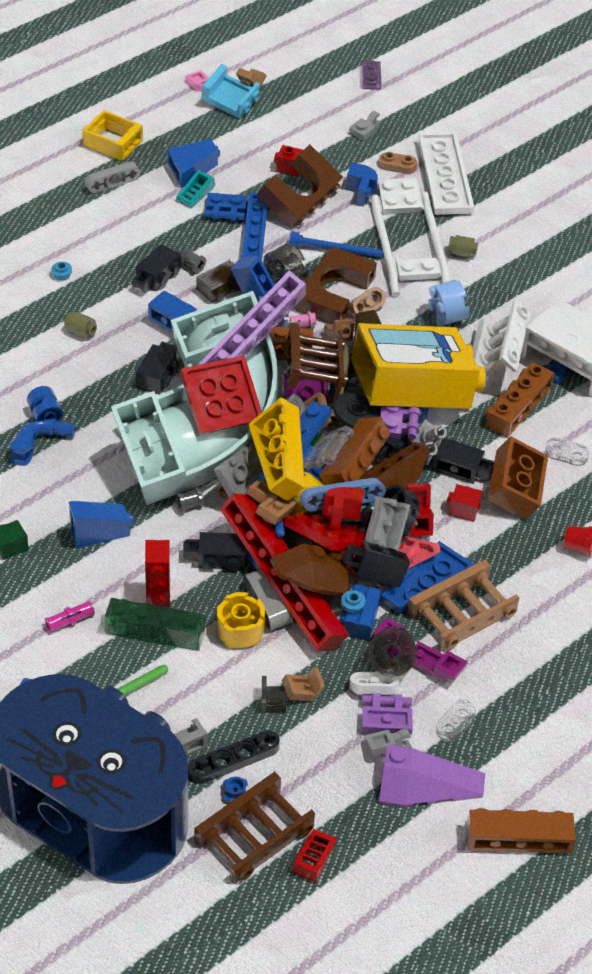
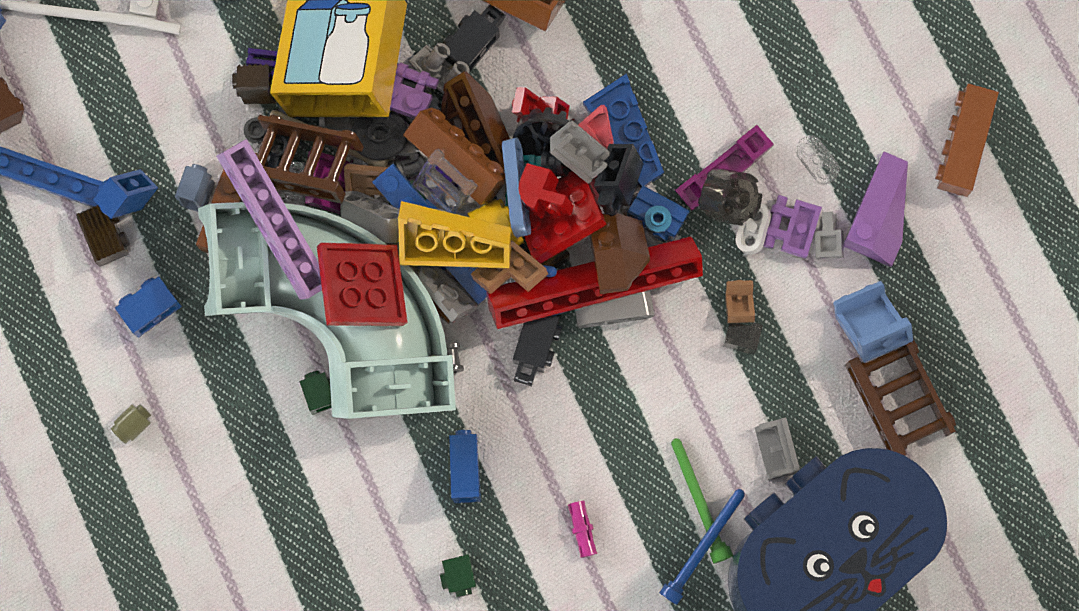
camera: 70 degrees left, 30 degrees up
(22, 446) = (319, 535): blue piece -> none
(44, 404) = (263, 494): blue wheel -> none
(61, 270) = (29, 429): dark azure plate -> none
(155, 624) = (621, 439): clear green brick -> none
(157, 269) = (59, 307): black brick -> none
(157, 368) = (231, 345): black brick -> none
(157, 572) = (573, 420): red brick -> none
(192, 260) = (54, 259): dark grey bush -> none
(232, 753) = (809, 396): black beam -> none
(234, 783) = (852, 400): blue plate -> none
(240, 620) = (654, 334): yellow brick -> none
(285, 259) = (110, 150): clear smoke brick -> none
(299, 240) = (53, 120): blue piece -> none
(305, 319) = (197, 150): bright pink pin -> none
(307, 870) = (953, 345): red slope -> none
(318, 785) = (872, 322): none -> medium blue panel
(335, 266) = (165, 130): reddish brown arch -> none
(344, 325) = (232, 115): medium nougat bracket -> none
(365, 302) = (192, 69): medium nougat plate -> none
(460, 585) = (657, 123): medium nougat fence -> none
(464, 502) = (533, 55): red brick -> none

